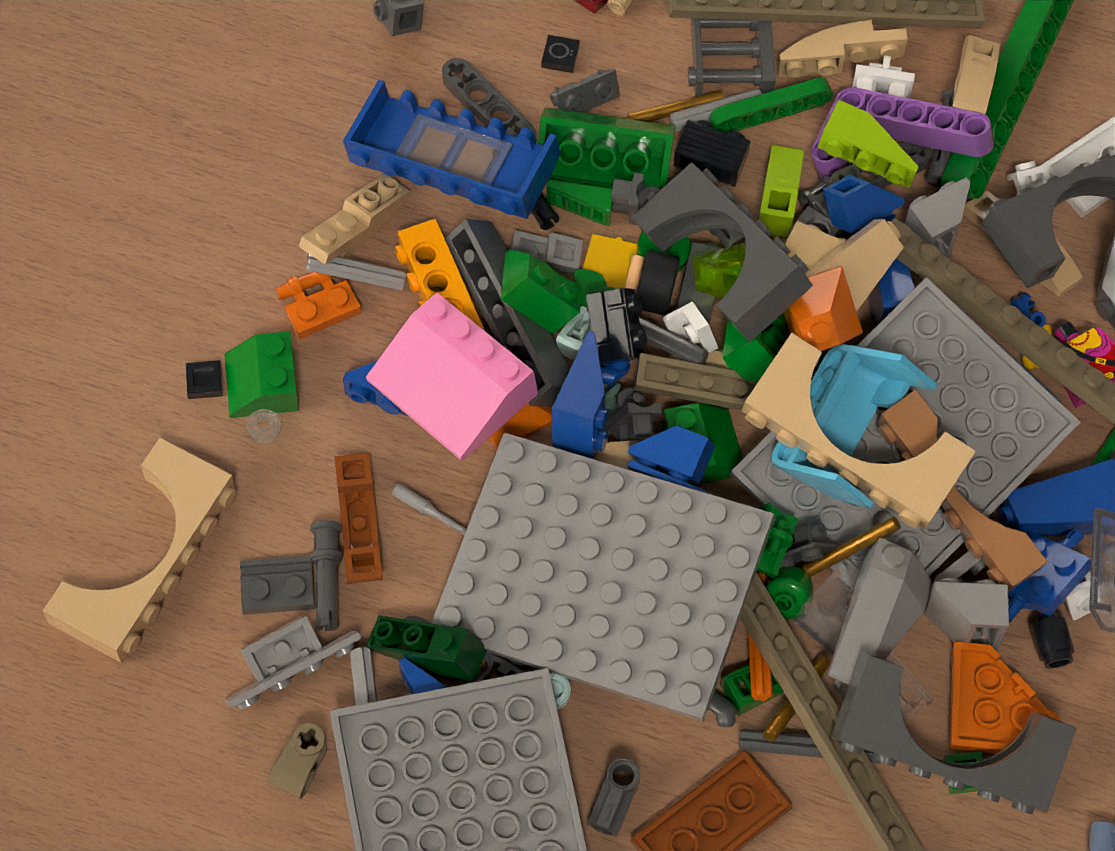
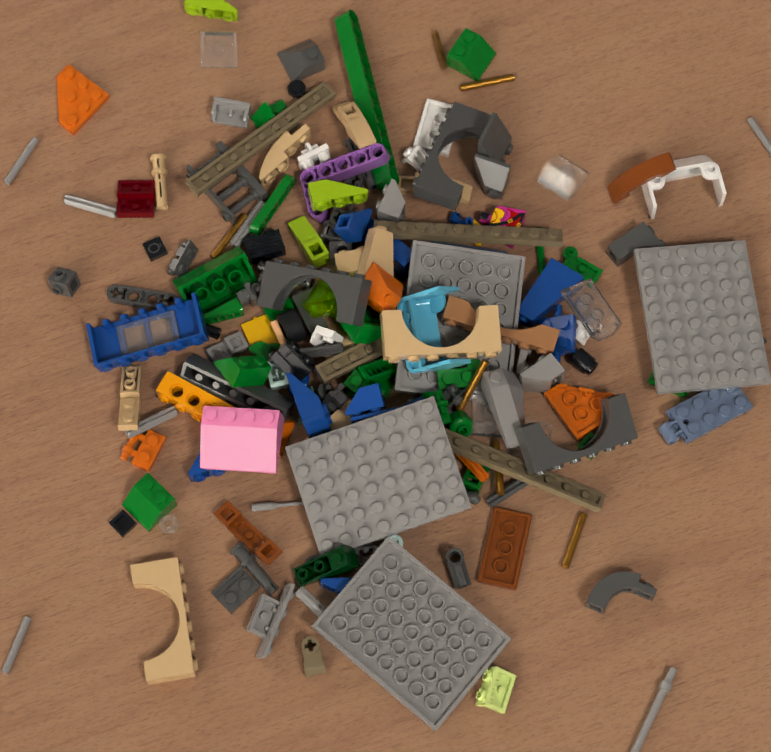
camera: 35 degrees left, 5 degrees up
(731, 420) = (388, 373): none -> green slope
(839, 520) = (459, 376): none -> green hinge

